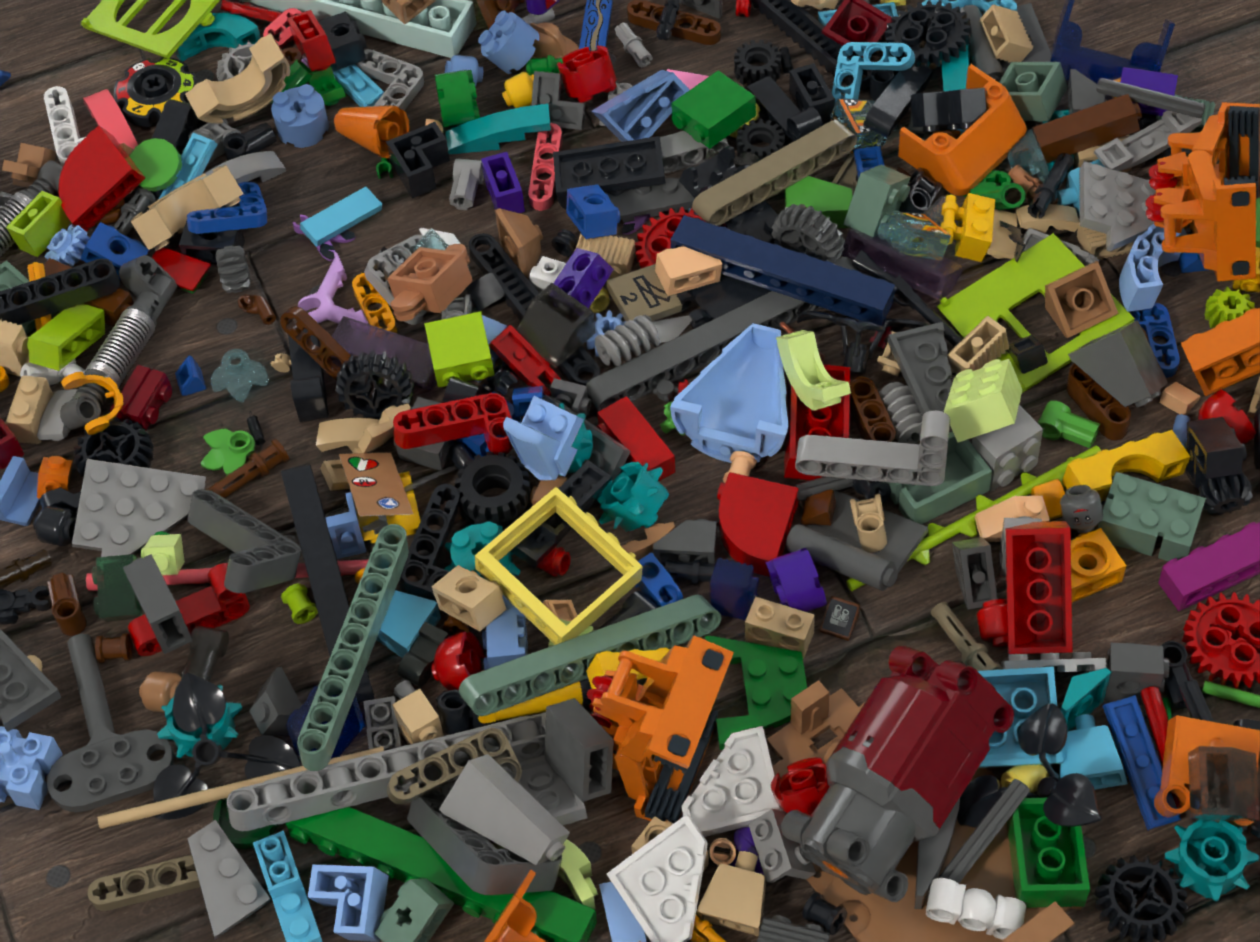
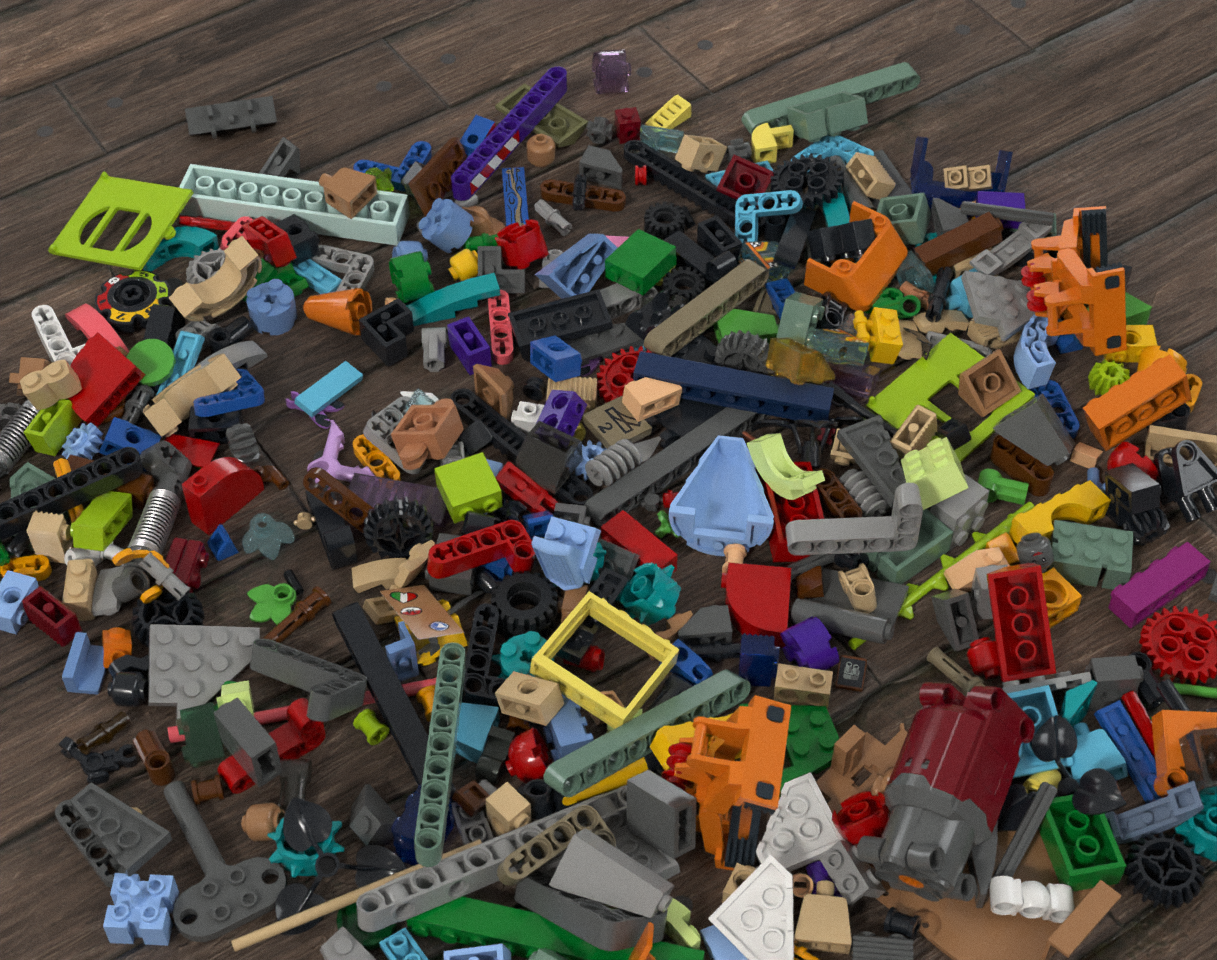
camera: 15 degrees left, 5 degrees down
(40, 178) = (49, 385): none -> tan brick
(112, 407) = (164, 576): none -> light grey pin
(197, 319) = (220, 492): none -> red brick
(383, 697) = (471, 798): none -> reddish brown tile
(384, 166) = (357, 342): green hand -> none
(858, 249) = (797, 362): none -> clear yellow slope
(1122, 49) = (968, 178): none -> tan slope
(1140, 837) = (1156, 816): none -> sand blue slope

